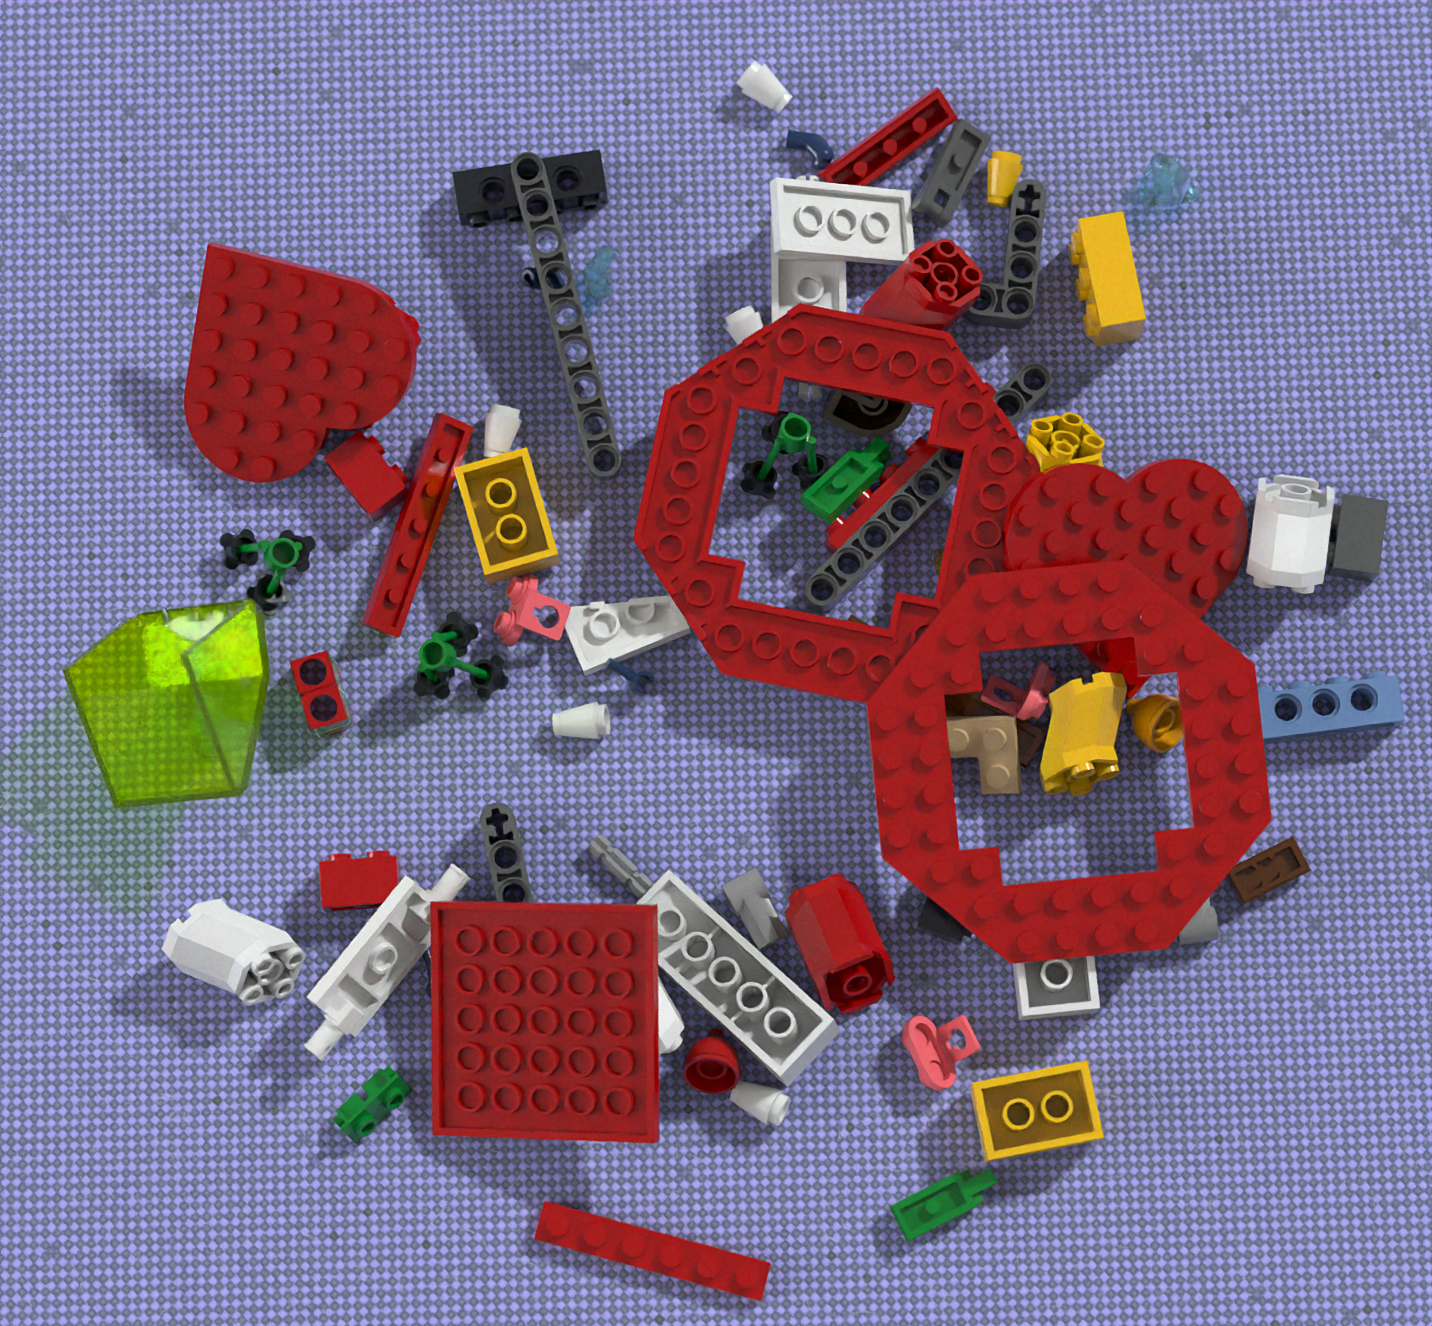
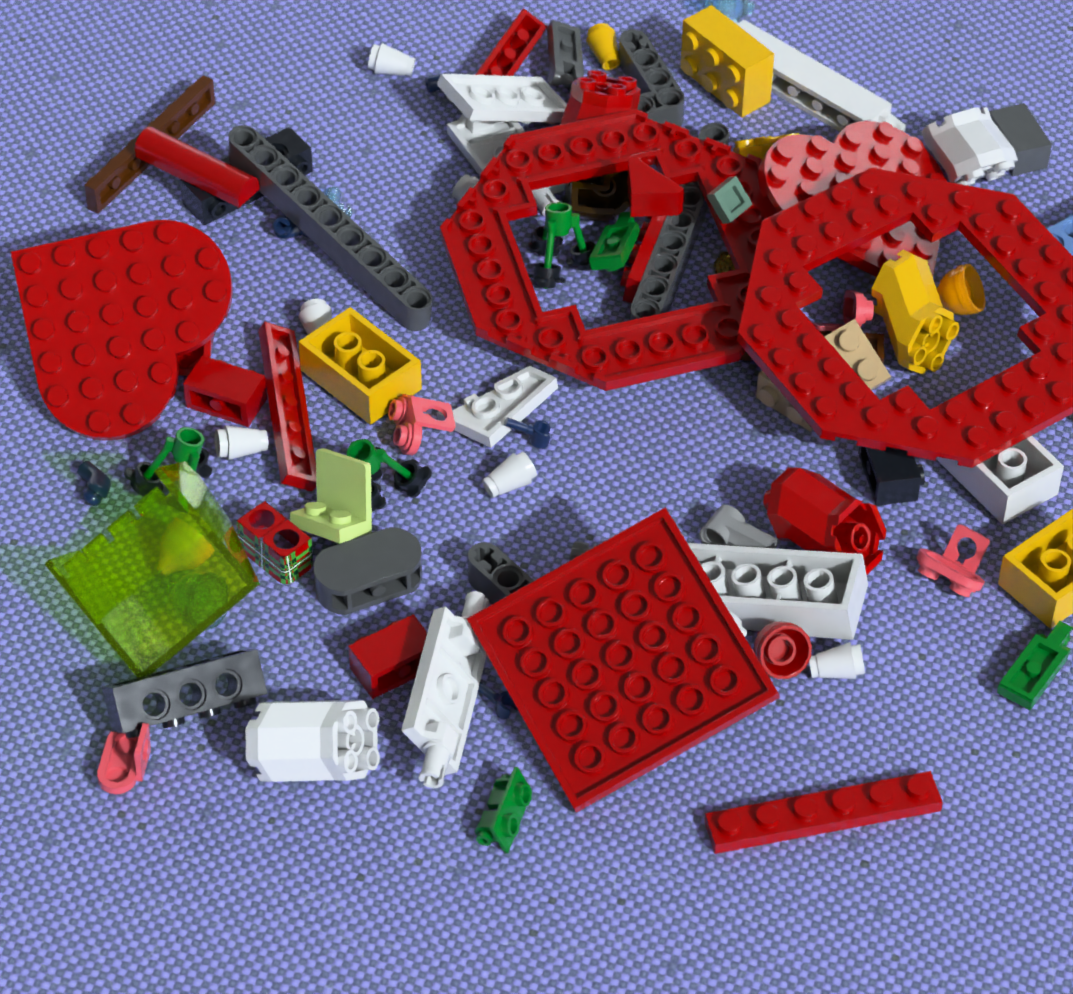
camera: 30 degrees left, 30 degrees down
(68, 874) = (124, 761): none -> coral bracket
(133, 826) = (126, 698): none -> brick
(195, 531) = (97, 481): none -> dark blue arm
(350, 547) = (239, 441): none -> white cone
(389, 770) = (368, 570): none -> dark grey brick
(391, 691) = (343, 499): none -> yellowish green bracket
(466, 84) = (126, 167): none -> reddish brown plate
(472, 169) = (195, 167): none -> red brick
(889, 463) = (652, 192): none -> red slope
(966, 516) = (729, 199): none -> sand green plate
(1185, 344) = (820, 89): none -> white hinge

